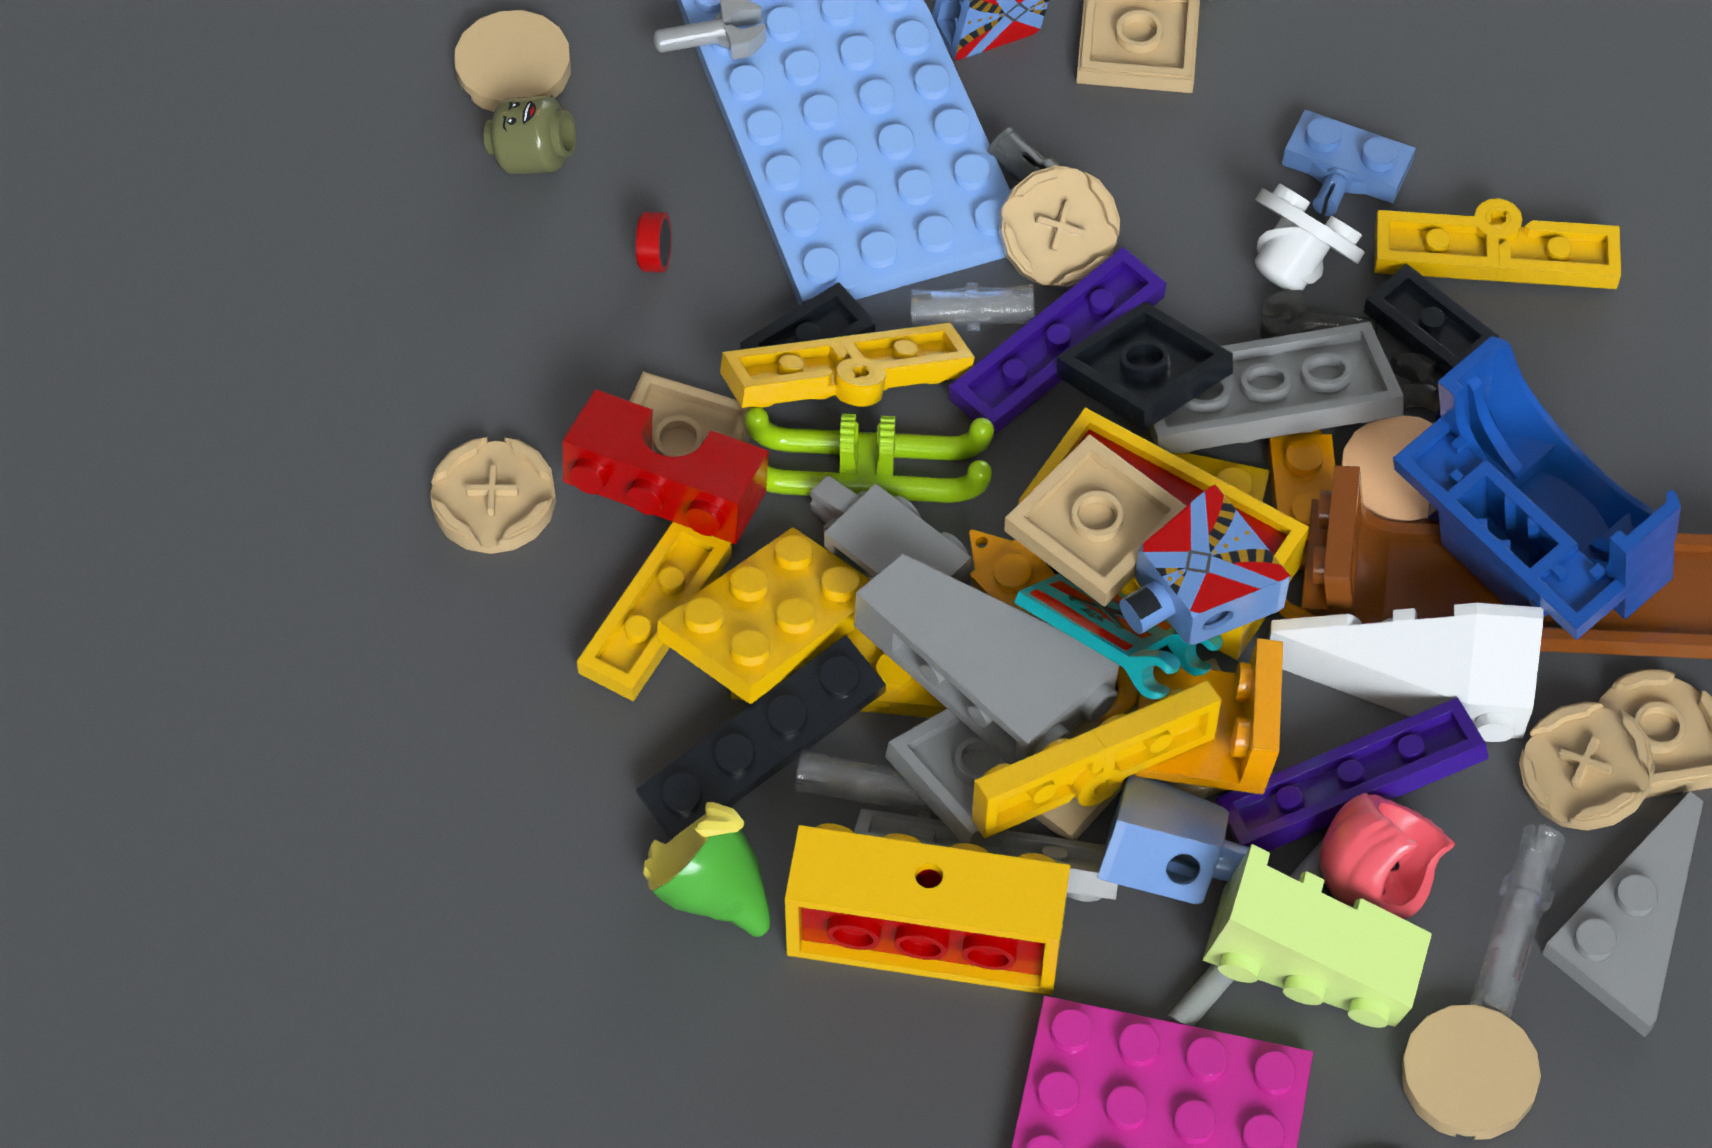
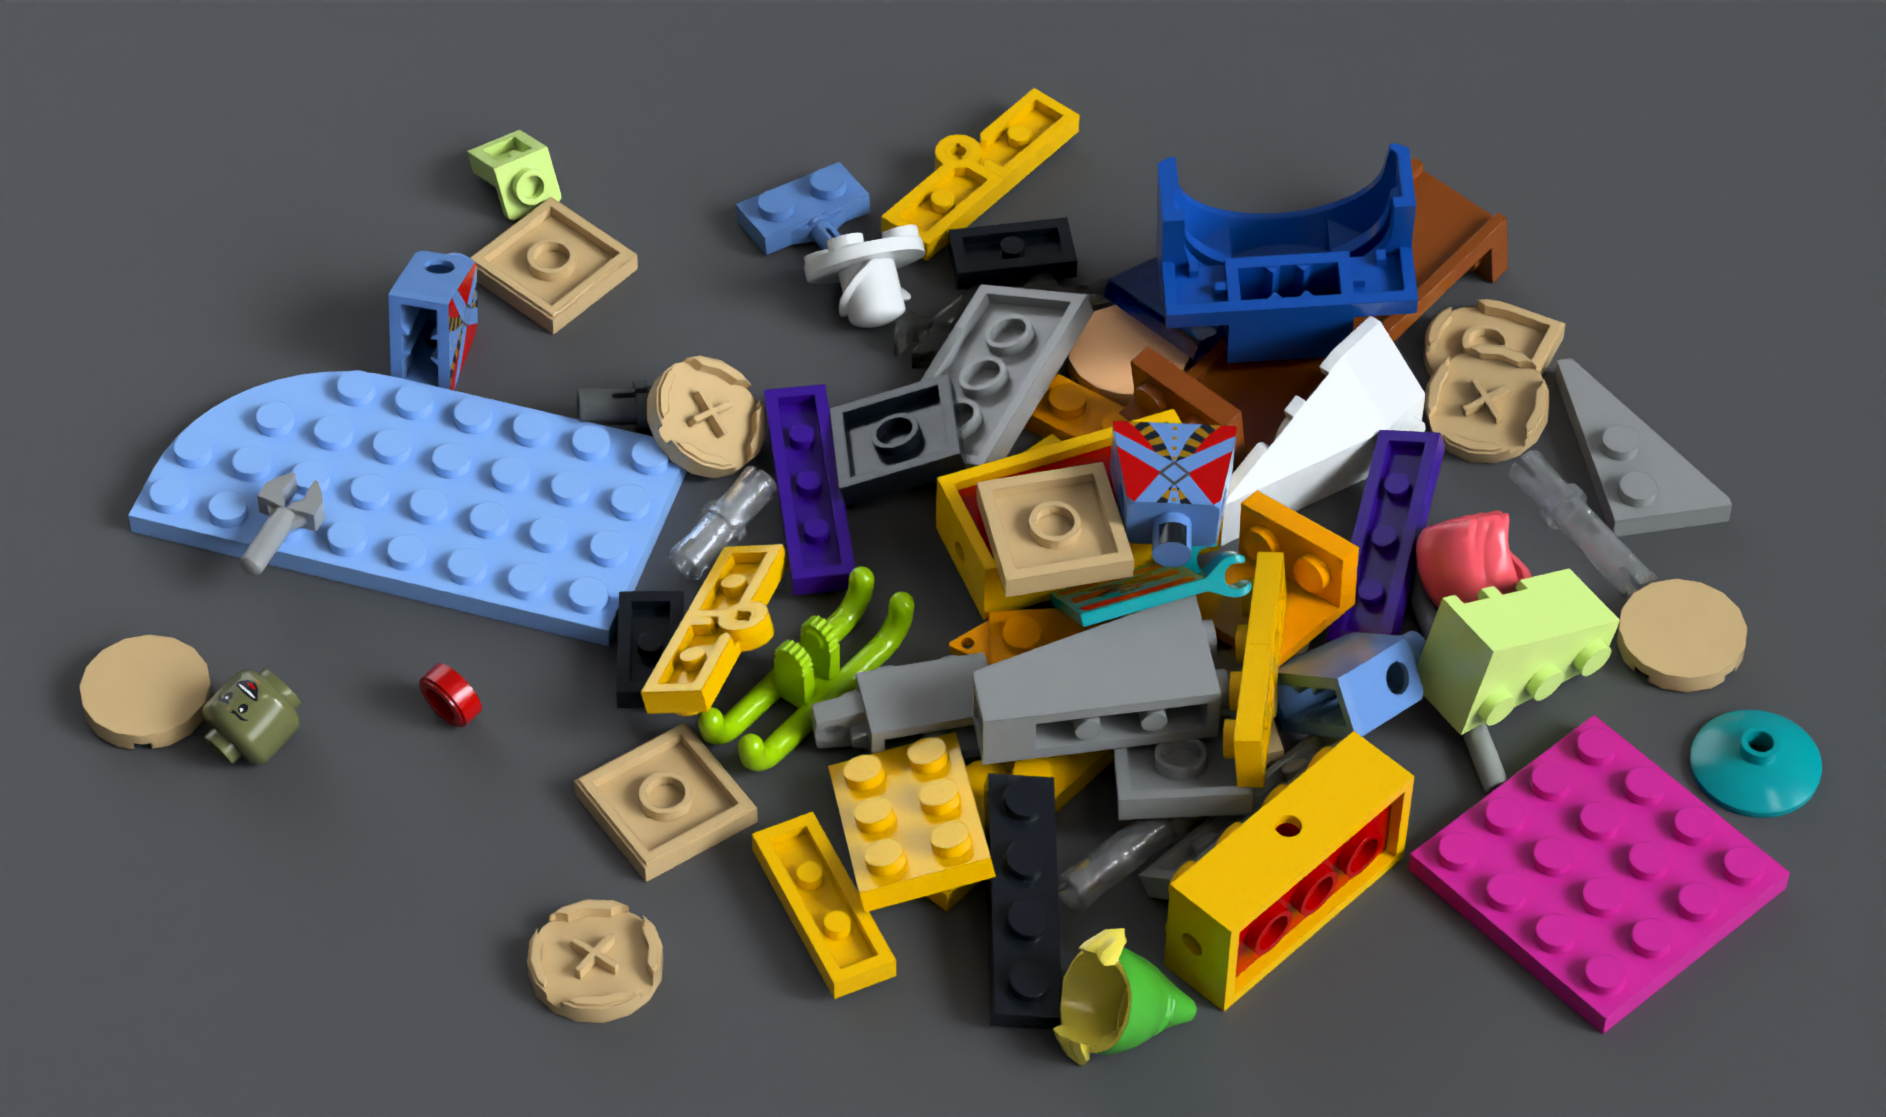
camera: 55 degrees left, 10 degrees down
(705, 490) = (669, 832): red arch -> none

